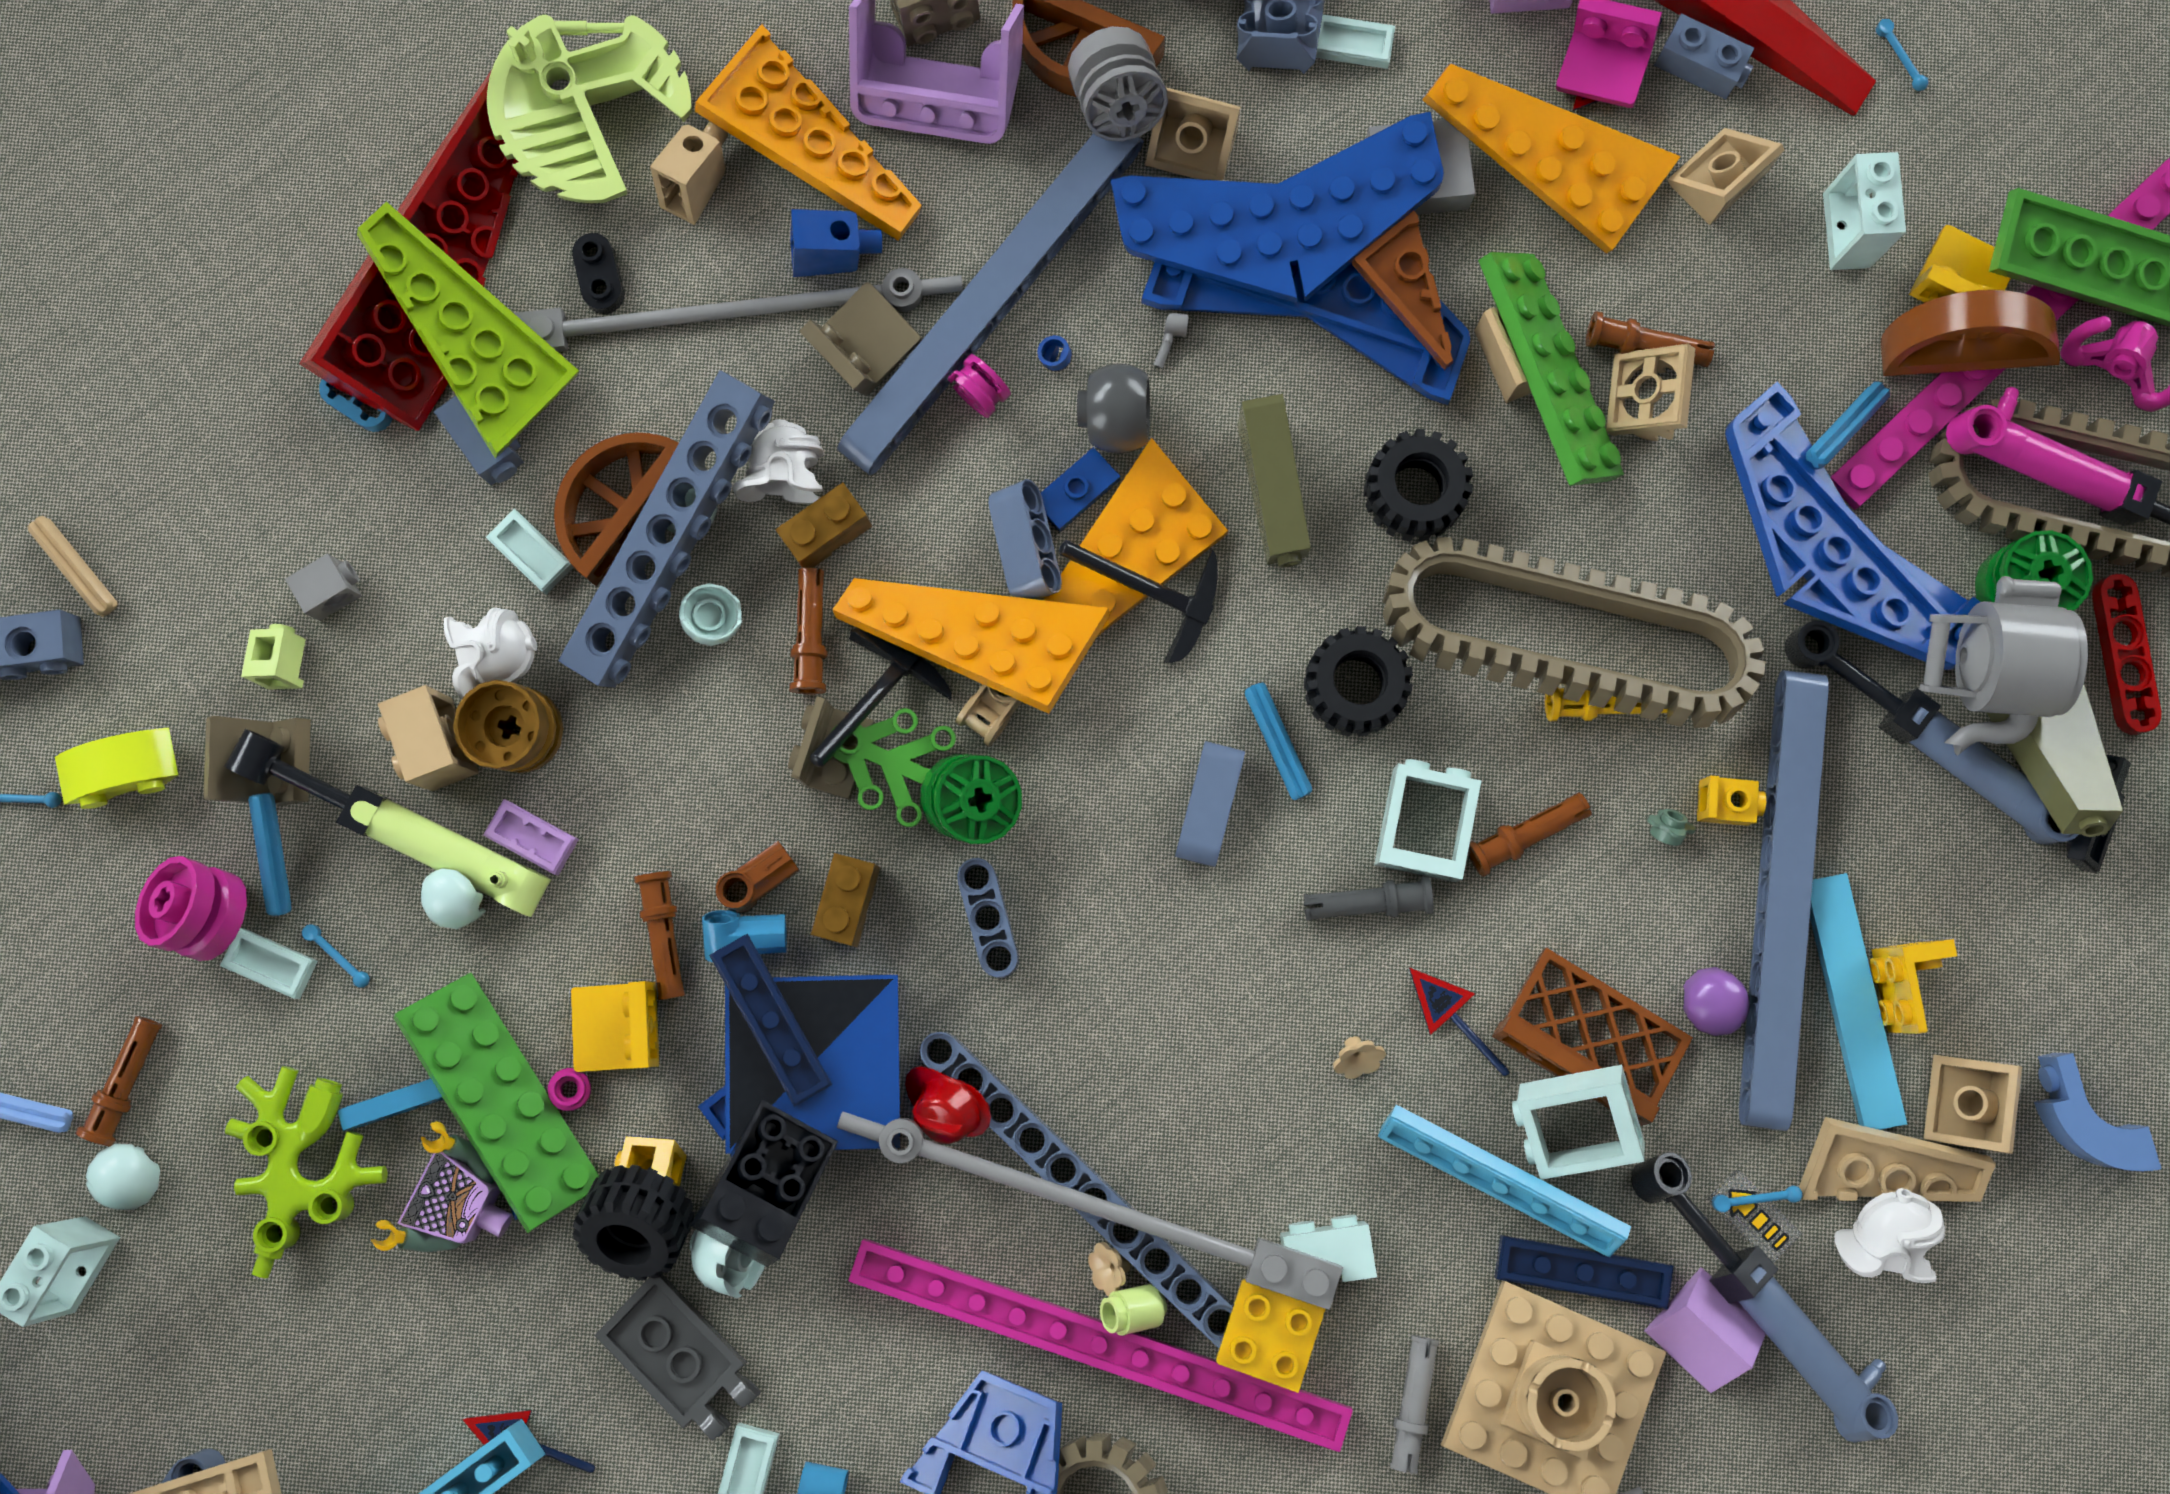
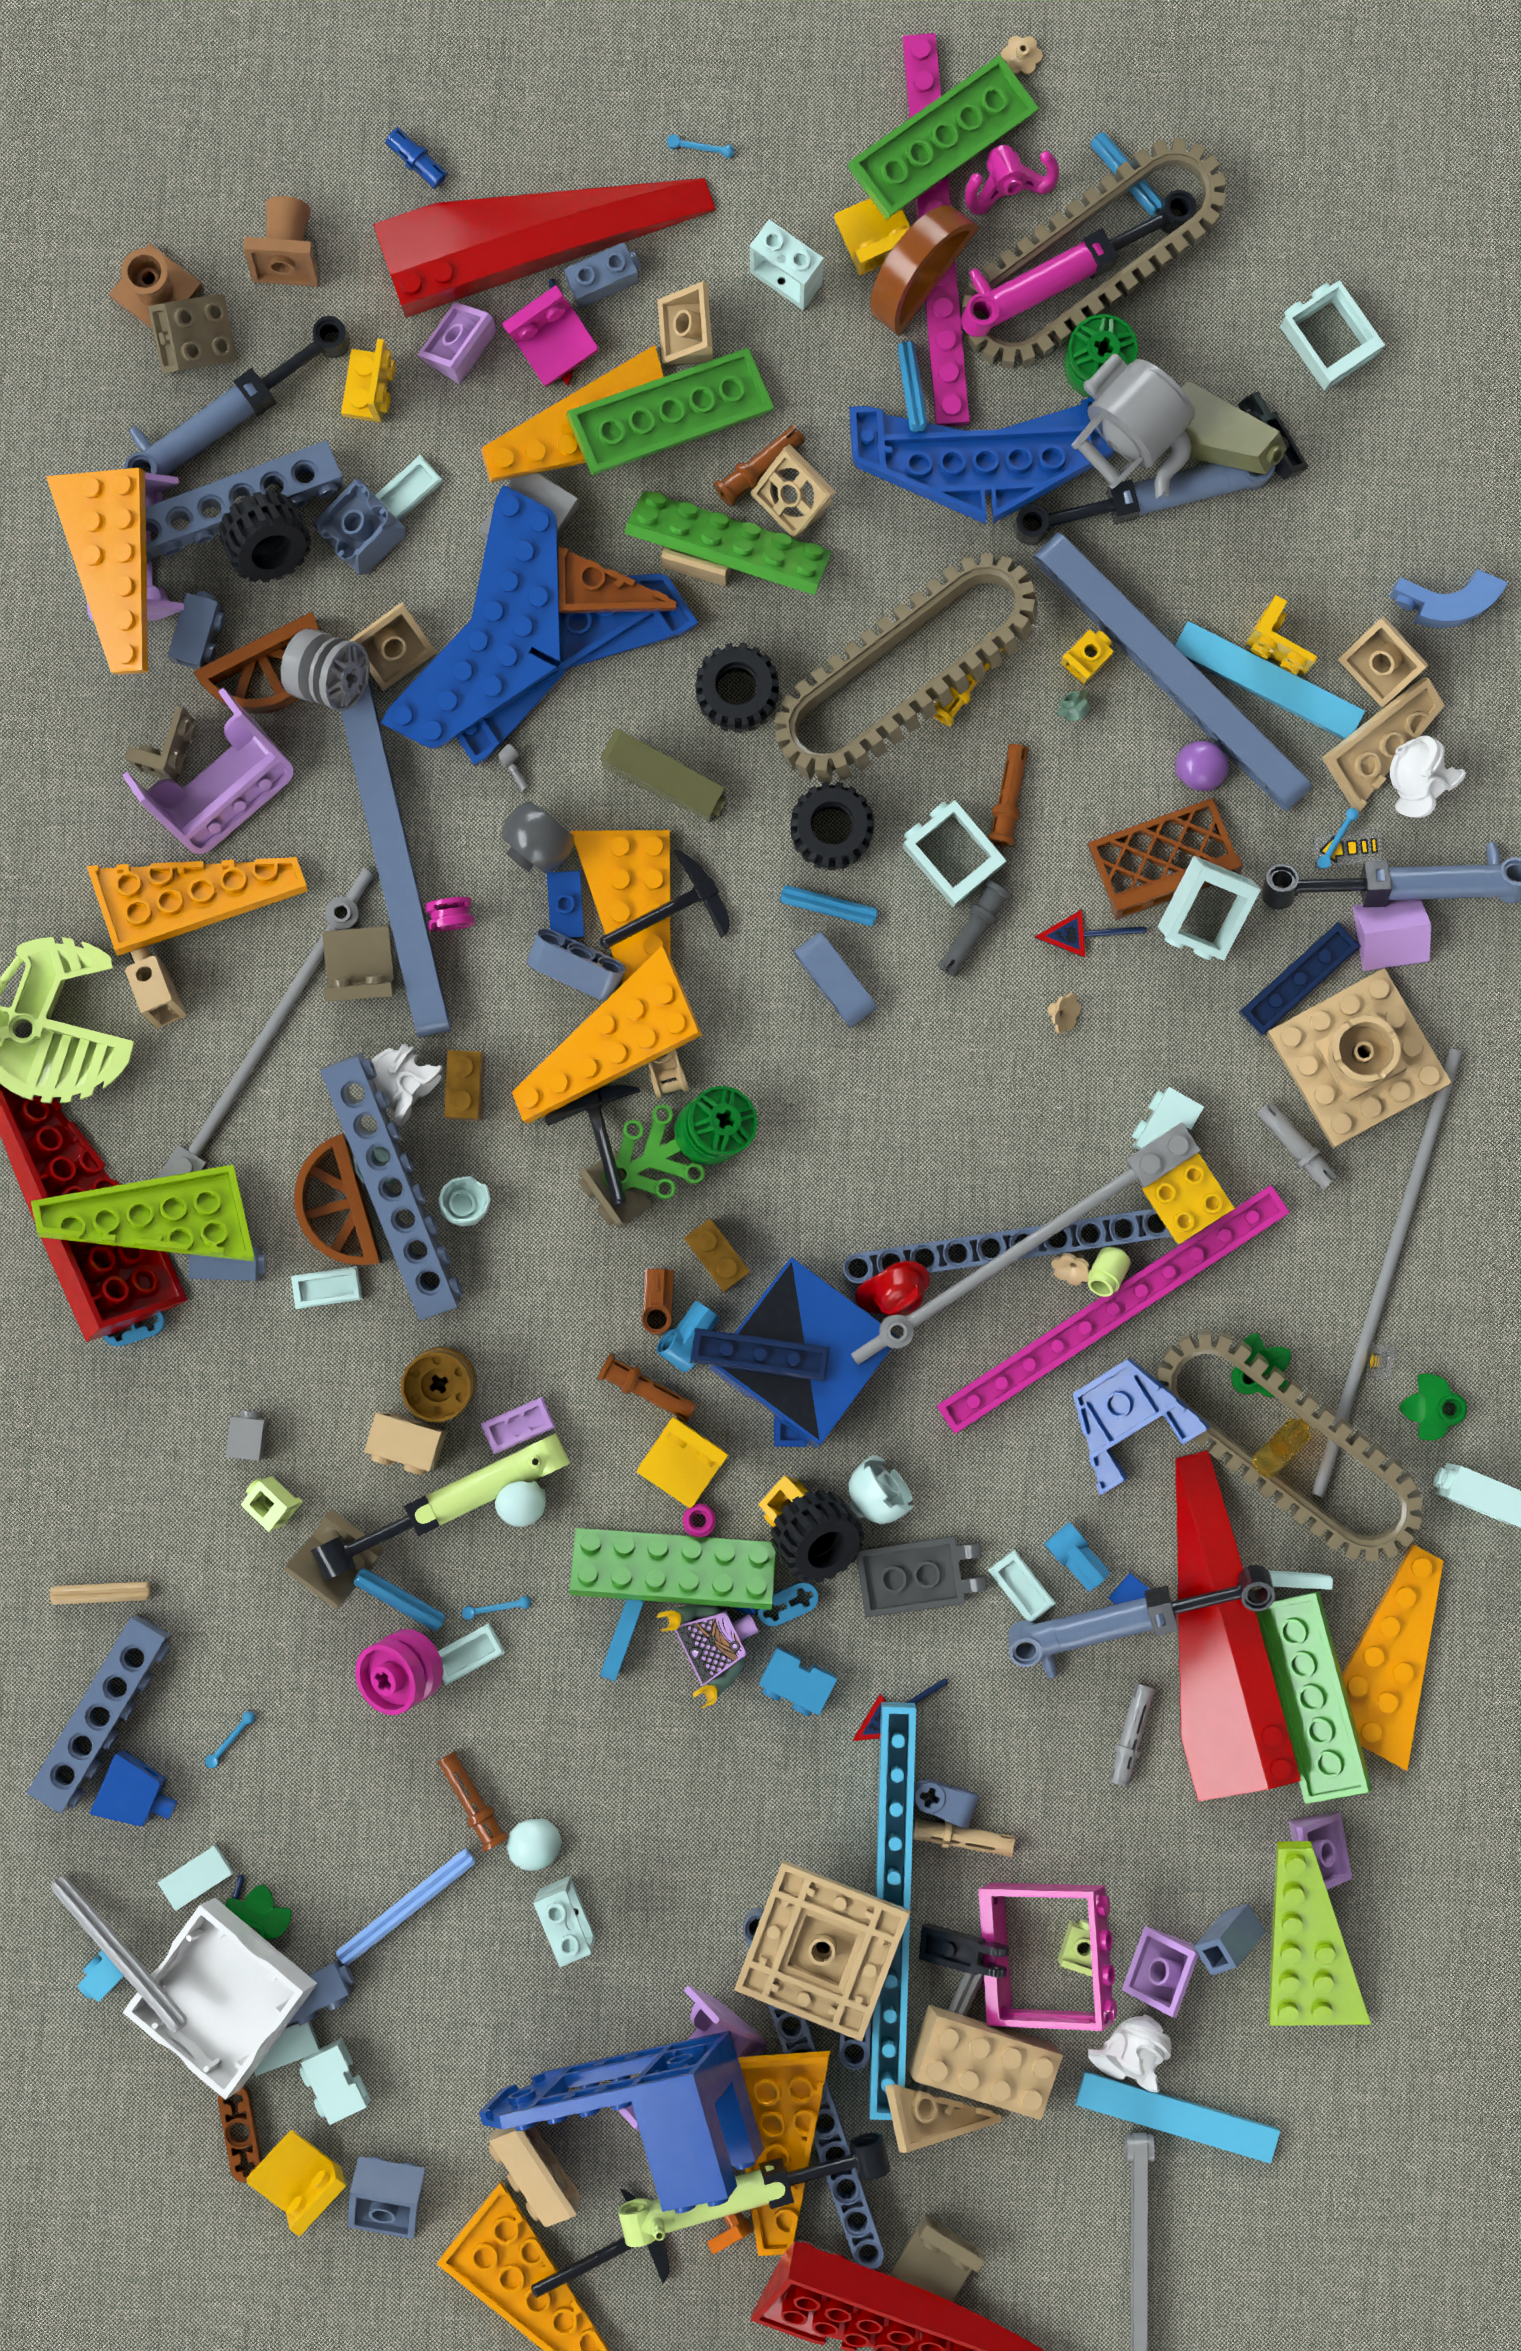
camera: 55 degrees left, 5 degrees up
(116, 766) = (263, 1657): neon yellow brick -> none
(282, 1183) = (617, 1742): lime plant -> none
(476, 1316) = (796, 1683): none -> dark azure brick
(493, 650) = (381, 1359): white helmet -> none
(546, 1253) = (790, 1611): none -> dark azure beam
(597, 271) = (171, 1102): black plate -> none
(765, 1184) = (859, 1434): black slope -> none
(808, 650) = (536, 1156): dark orange pin -> none
(829, 242) = (272, 948): blue torso -> none
(974, 902) = (785, 1162): sand blue beam -> none
(1049, 350) = (460, 852): blue hinge -> none
(1504, 1181) = (1207, 984): medium azure tile -> none
(1630, 214) = (669, 411): none -> bright green plate
(2135, 653) = (1187, 340): red beam -> none

